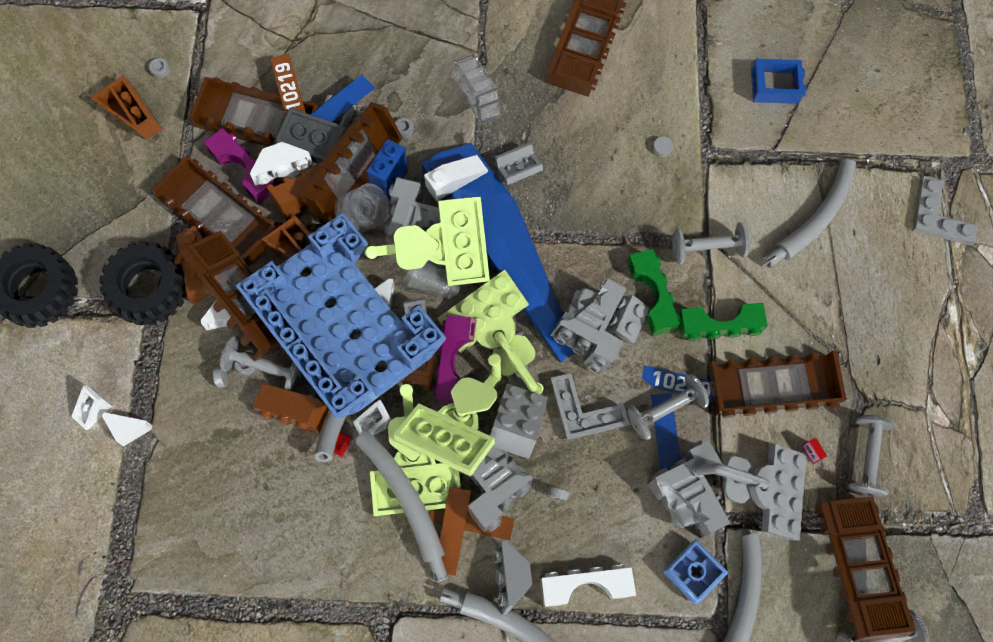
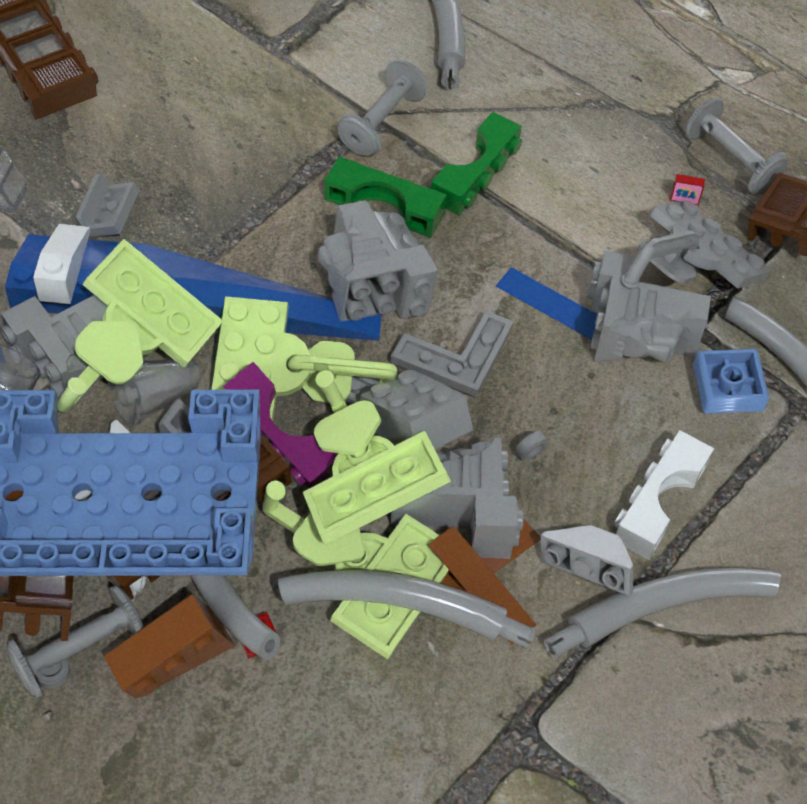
camera: 50 degrees left, 15 degrees down
(220, 378) = (40, 708): light grey tile -> none
(373, 419) = (270, 562): white slope -> none
(663, 146) = (228, 74): light grey tile -> none
(669, 380) = (509, 250): blue sticker -> none
(697, 392) = (533, 237): light grey hose -> none
(776, 384) = (587, 170): reddish brown window -> none

